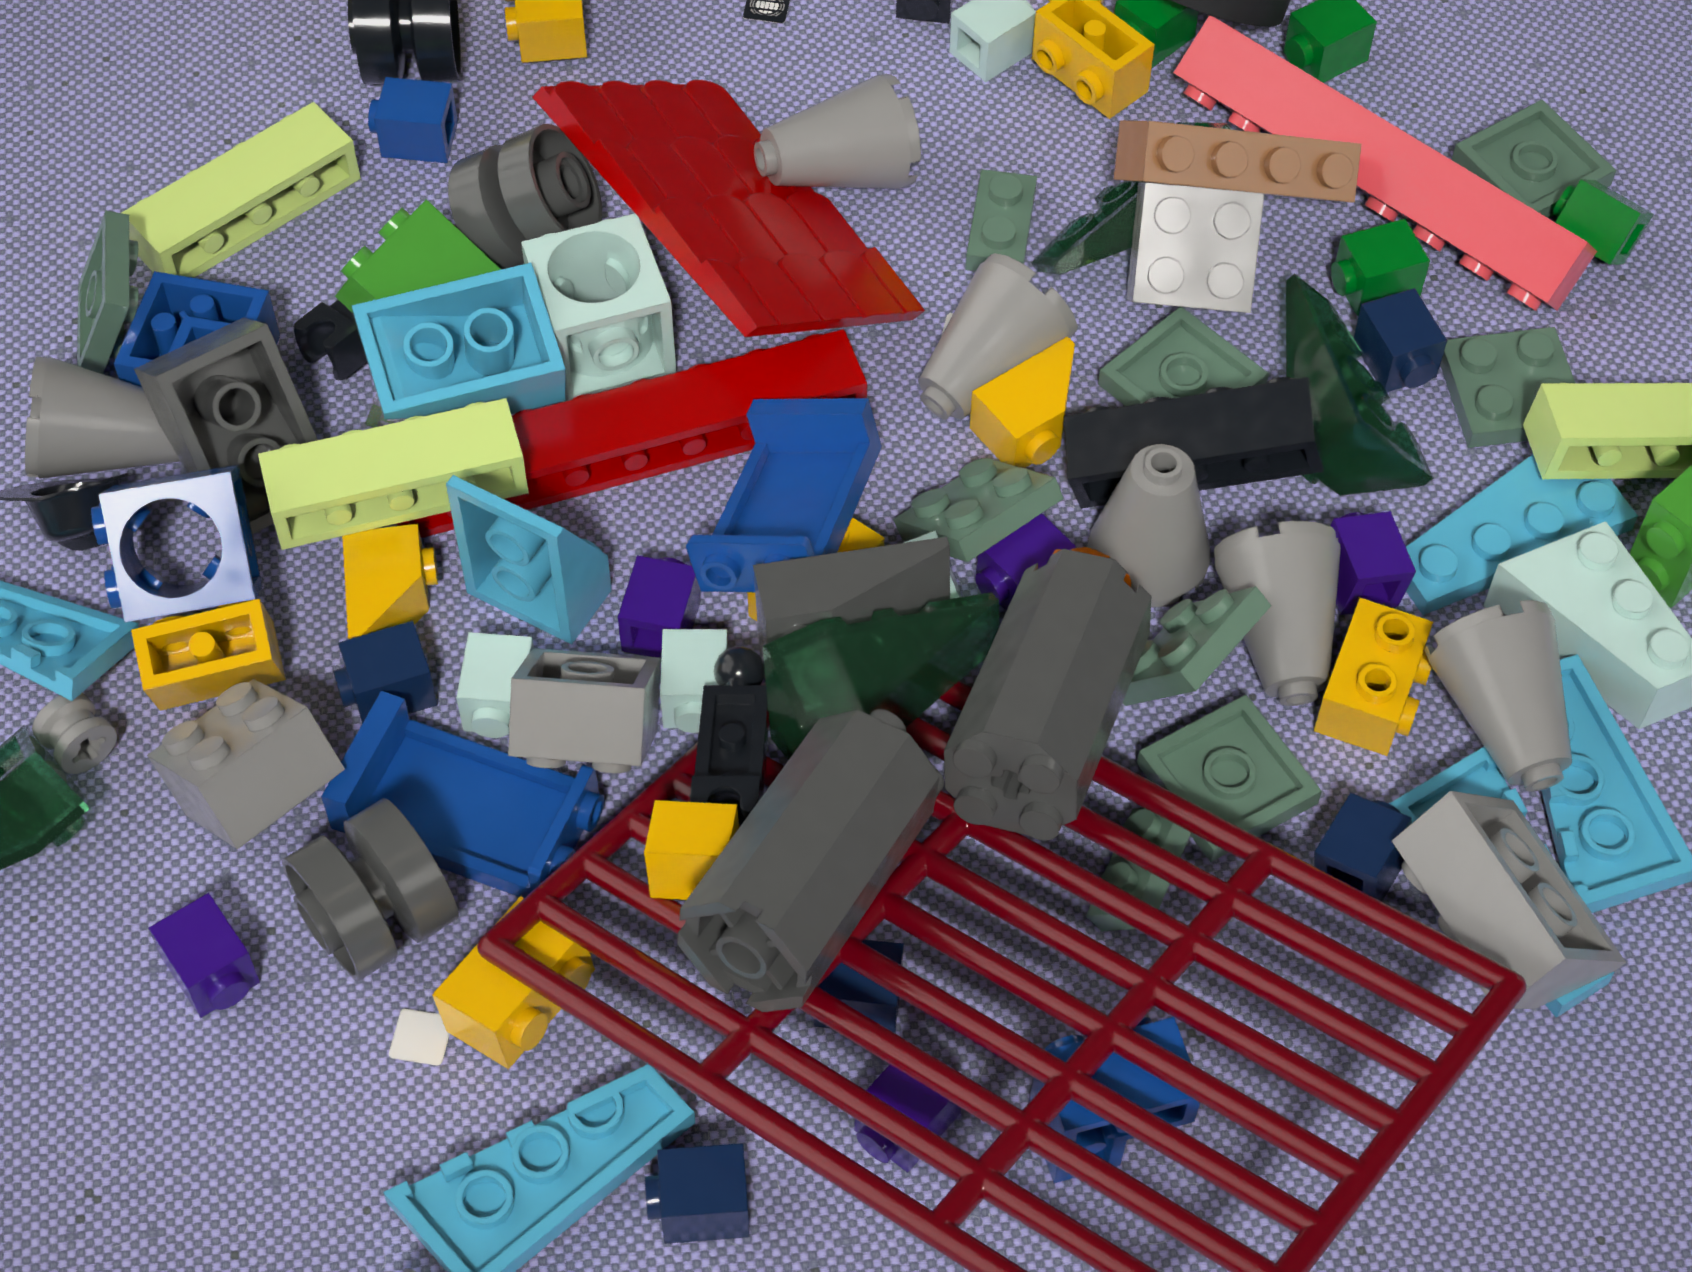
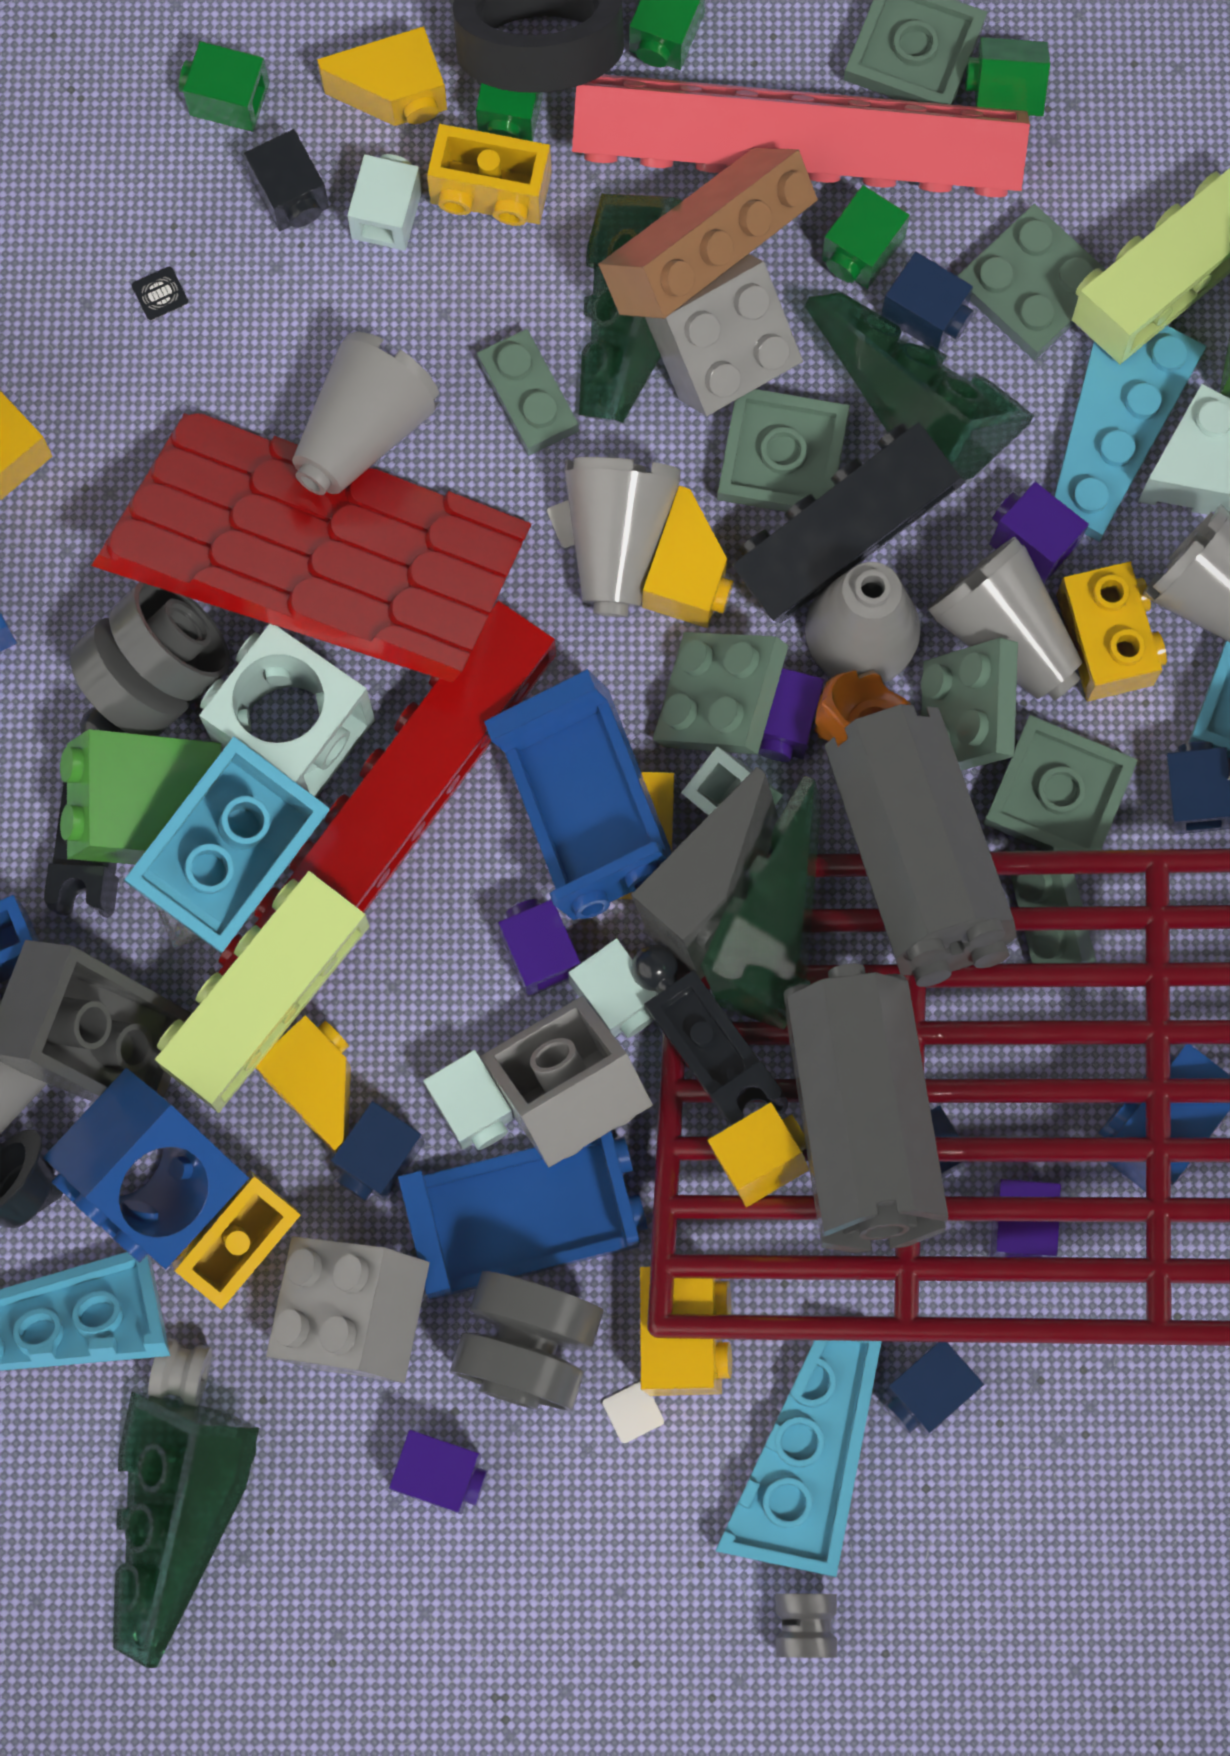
camera: 35 degrees left, 20 degrees up
(526, 562) = (418, 983): medium azure slope -> none

